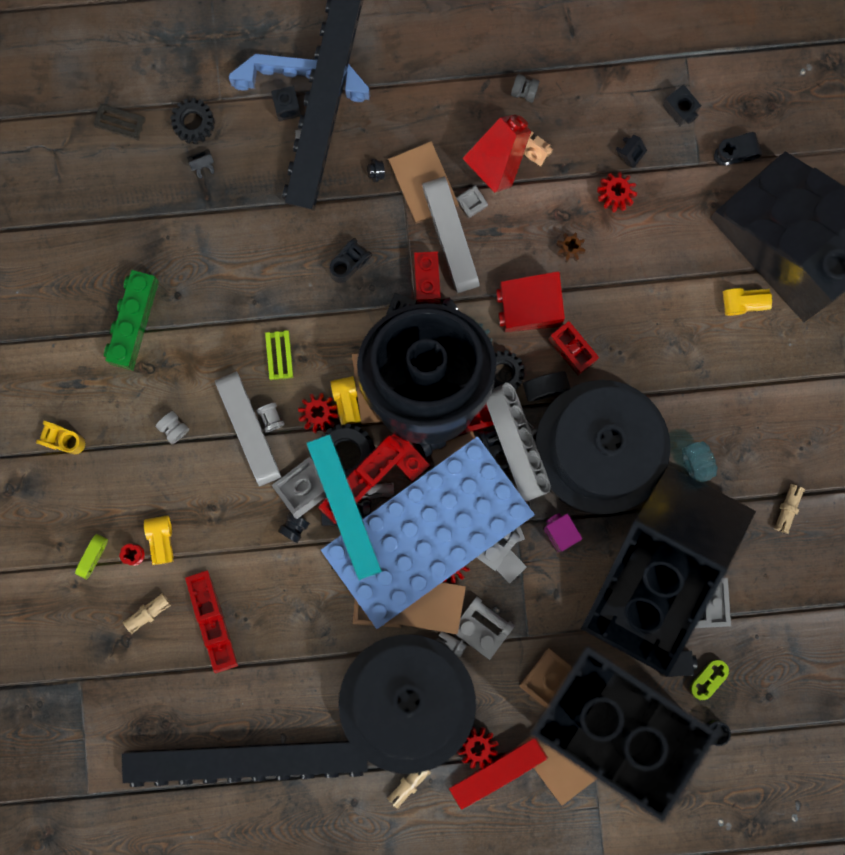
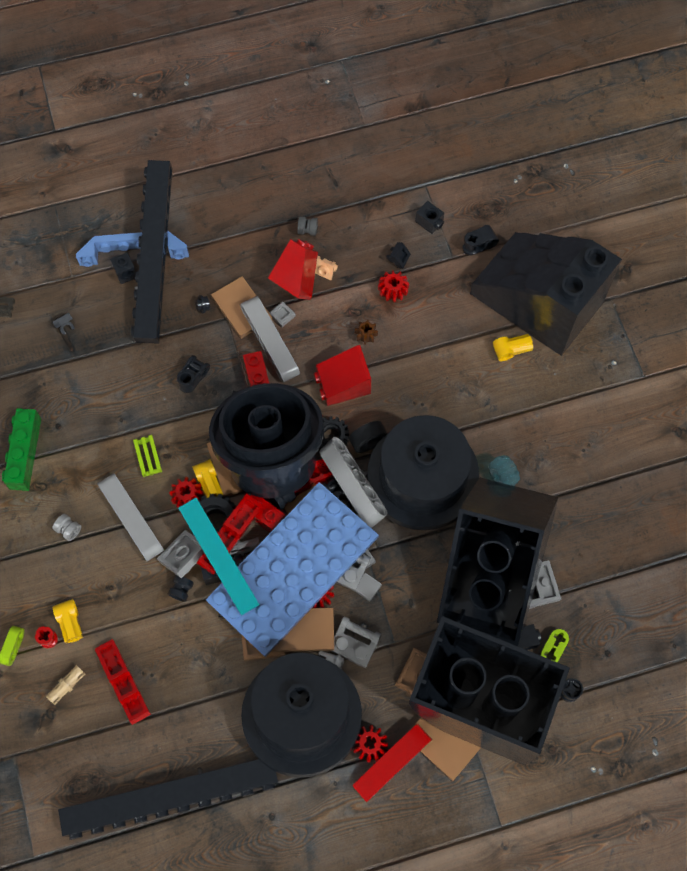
camera: 10 degrees left, 15 degrees down
(187, 108) = (48, 285): black tyre -> none
(270, 417) = (147, 504): light grey bush -> none
(407, 787) = (316, 790): tan pin -> none
(561, 532) = (404, 547): magenta brick -> none
(573, 348) = (384, 404): red brick -> none
(789, 509) = (585, 497): tan pin -> none

